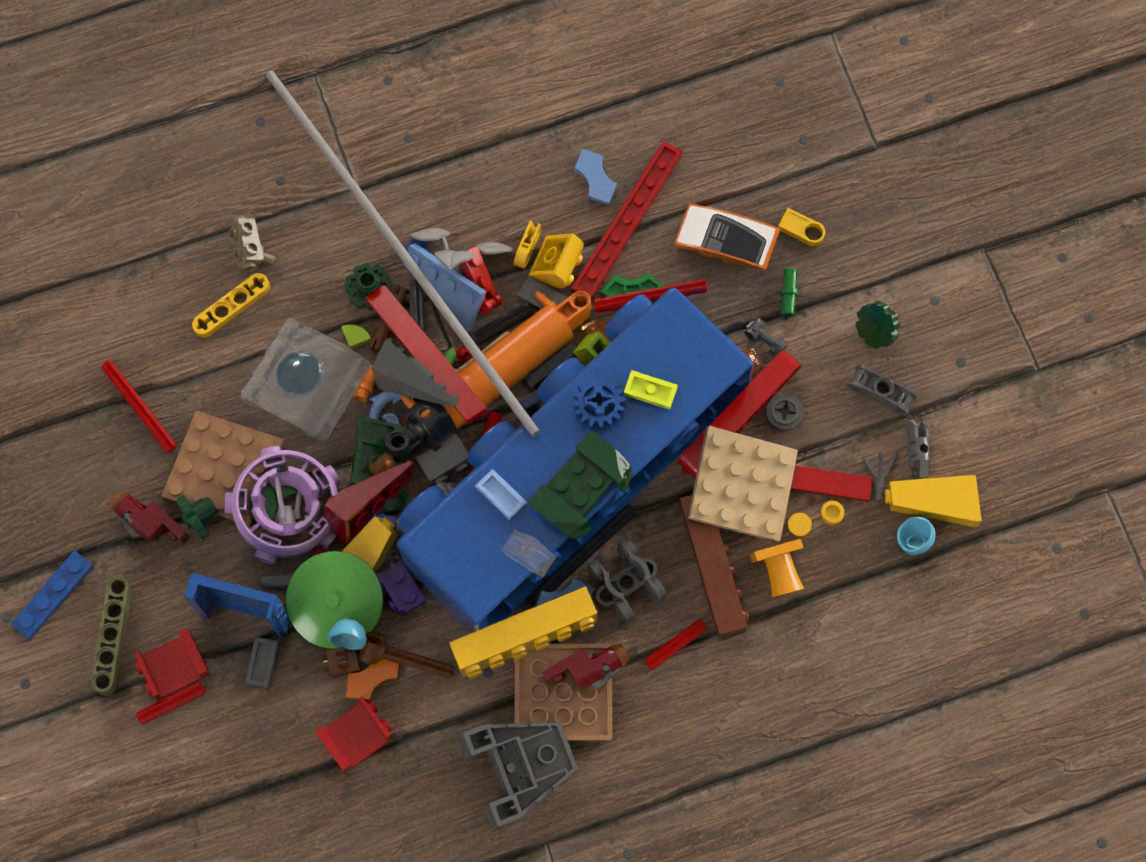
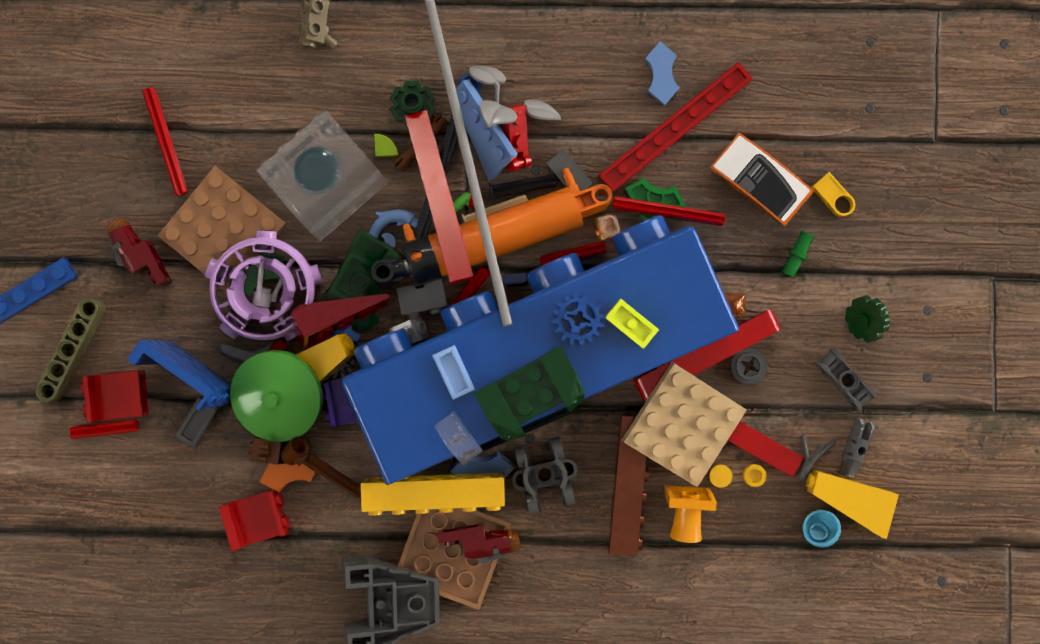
camera: 20 degrees right, 15 degrees up
(197, 514) = (180, 268): dark green plant -> none
(234, 308) = (280, 71): yellow beam -> none
(348, 634) = (275, 435): medium azure piece -> none
(366, 386) = (379, 198): orange pin -> none
(383, 463) = (364, 286): clear orange tile -> none
(407, 376) = (414, 212): dark grey wedge -> none
(527, 245) = (573, 118): yellow piece -> none
(536, 378) = (553, 245): black beam -> none
(557, 260) = (595, 144): yellow brick -> none
(591, 347) = (596, 247): lime brick -> none
(675, 644) = (568, 543): red axle -> none
(755, 330) = (753, 279): dark grey bar -> none

